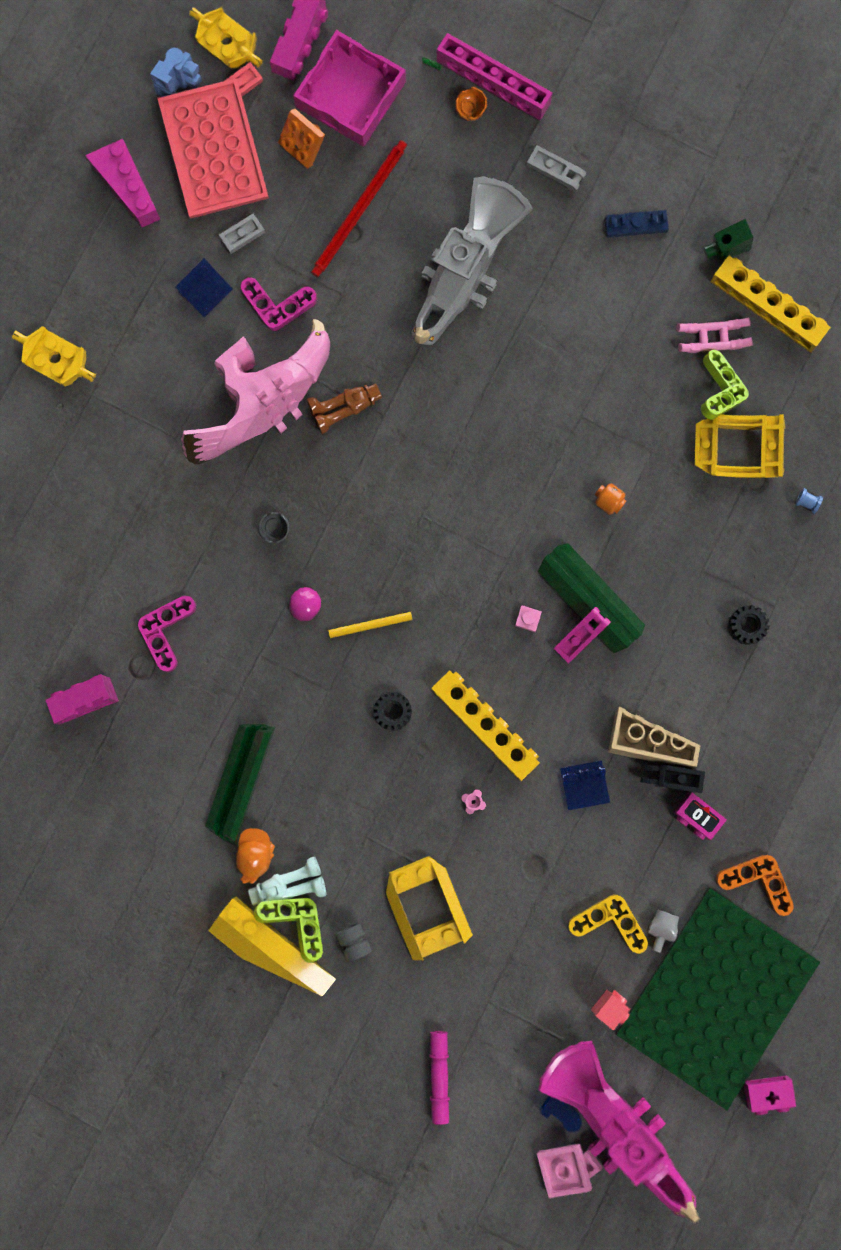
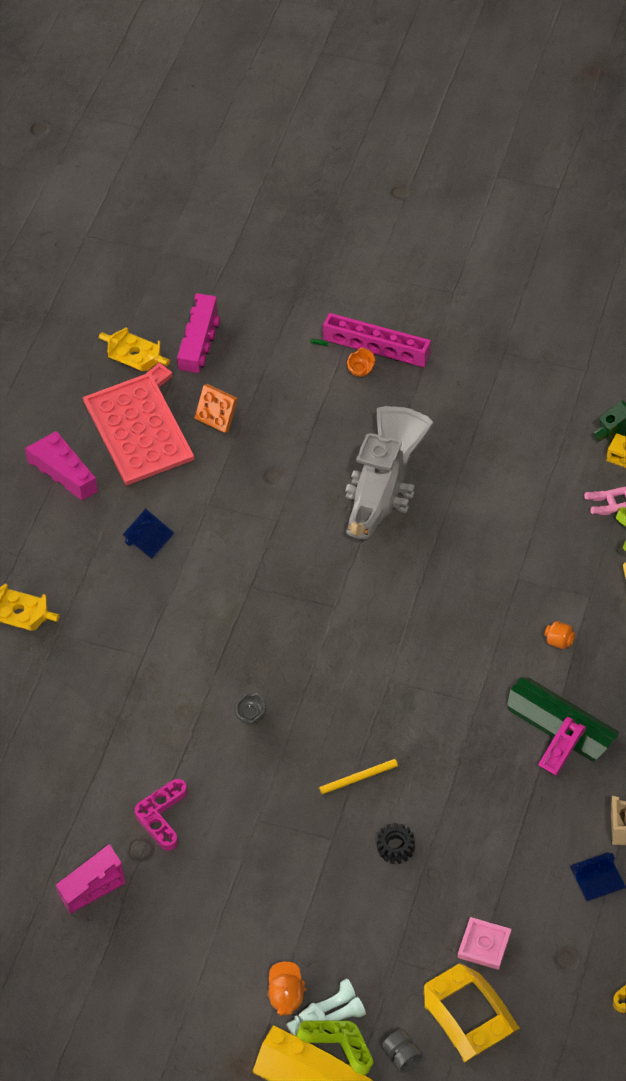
camera: 10 degrees left, 30 degrees down
(175, 72) = (94, 377): medium blue hips -> none
(239, 781) = (258, 930): dark green piece -> none
(242, 233) = (175, 488): light grey plate -> none
(259, 396) = (215, 603): bright pink animal -> none
(272, 310) = (216, 542): dark pink beam -> none
(304, 604) = (291, 769): dark pink hair -> none
(350, 88) = (252, 367): dark pink tile -> none
(356, 399) = (305, 598): dark orange piece -> none
(359, 208) = (277, 455): red piece -> none
(457, 839) = (484, 943): none -> bright pink plate
(476, 795) = (492, 903): bright pink plate -> none
(503, 753) = (492, 849): yellow brick -> none
(528, 618) = (507, 746): bright pink plate -> none
(556, 168) = (447, 398): light grey plate -> none
(636, 223) = (528, 427): dark blue plate -> none

